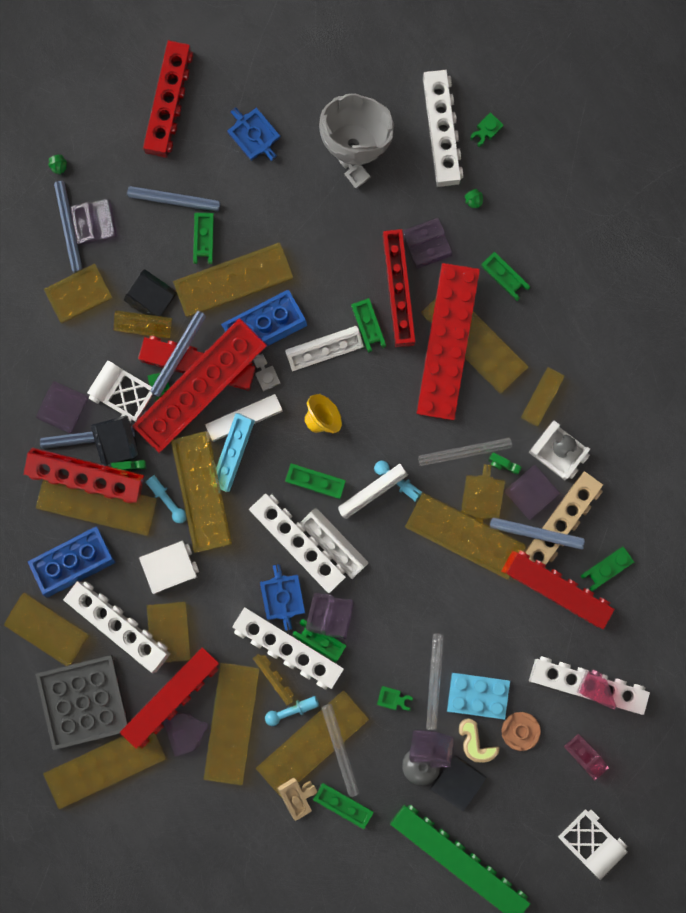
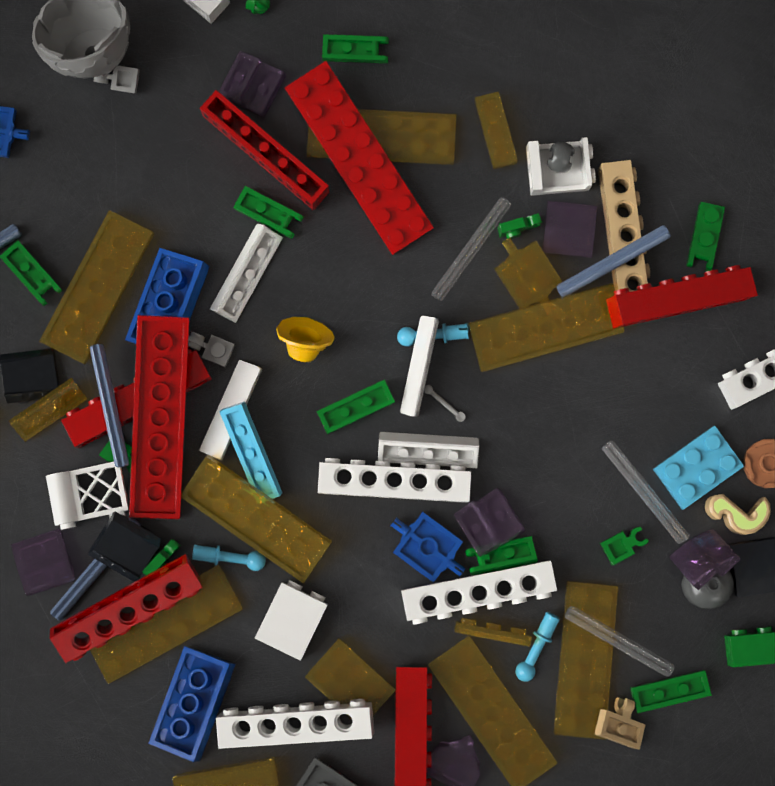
camera: 45 degrees left, 0 degrees up
(369, 541) = (460, 416): none -> light grey hinge

